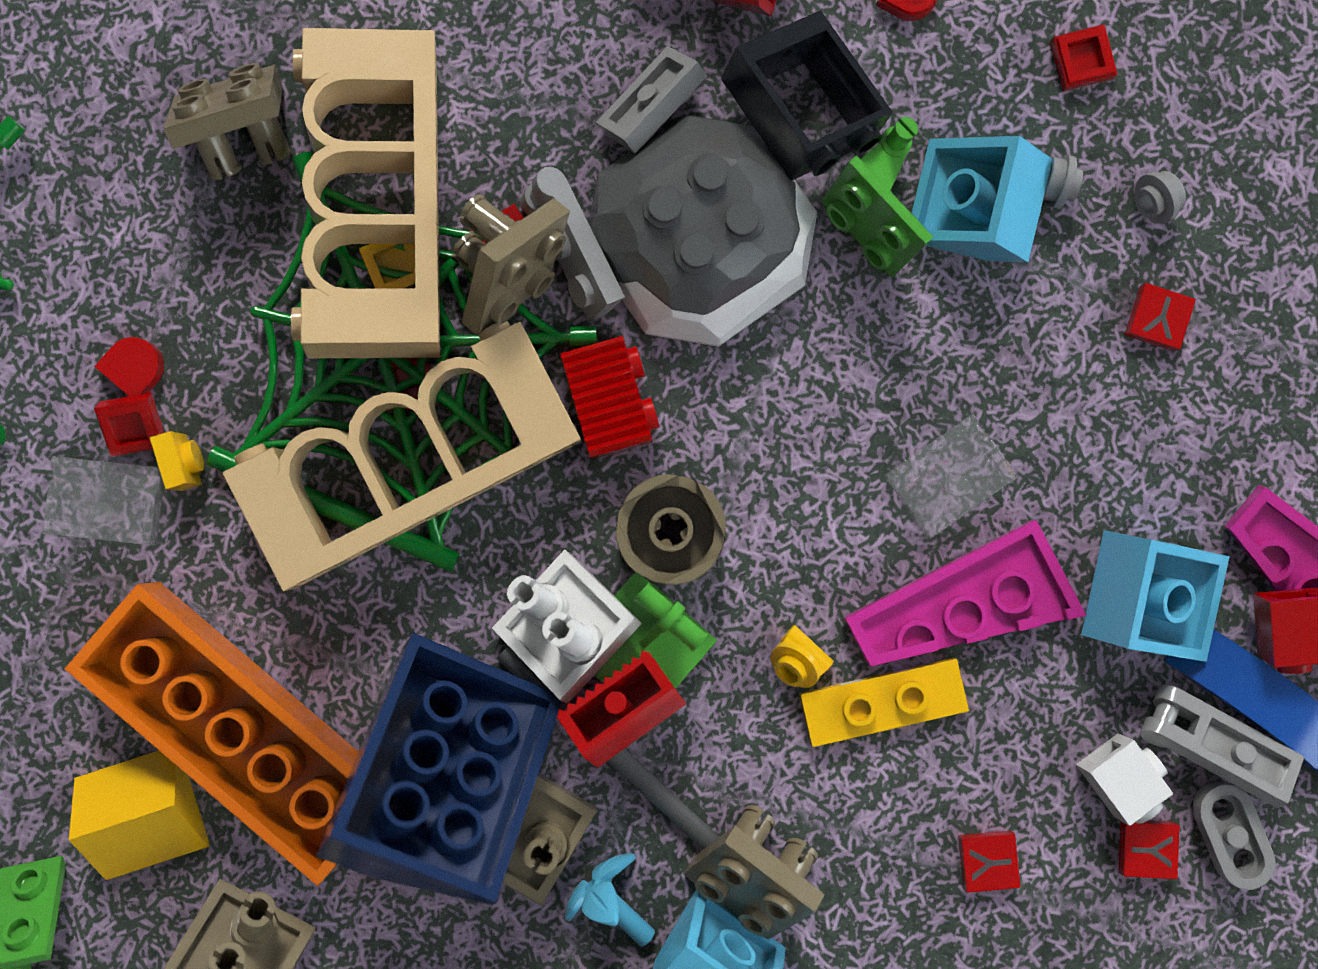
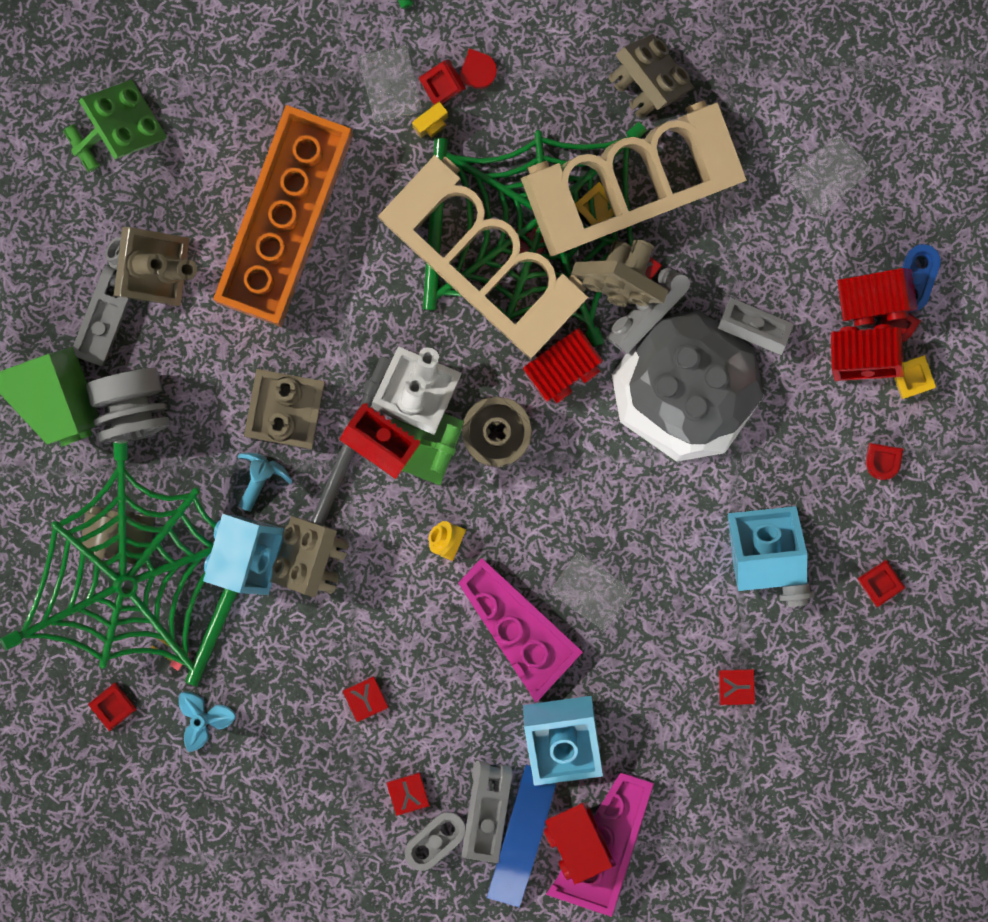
camera: 70 degrees right, 0 degrees up
(135, 815) = (209, 174): yellow slope -> none
(443, 775) = (307, 348): dark blue slope -> none
(838, 73) = (826, 414): black window -> none
(868, 209) = (741, 474): bright green plate -> none
(883, 702) = (438, 600): yellow plate -> none
(1127, 779) = (445, 763): white brick -> none
(1159, 196) = (809, 658): light grey plate -> none

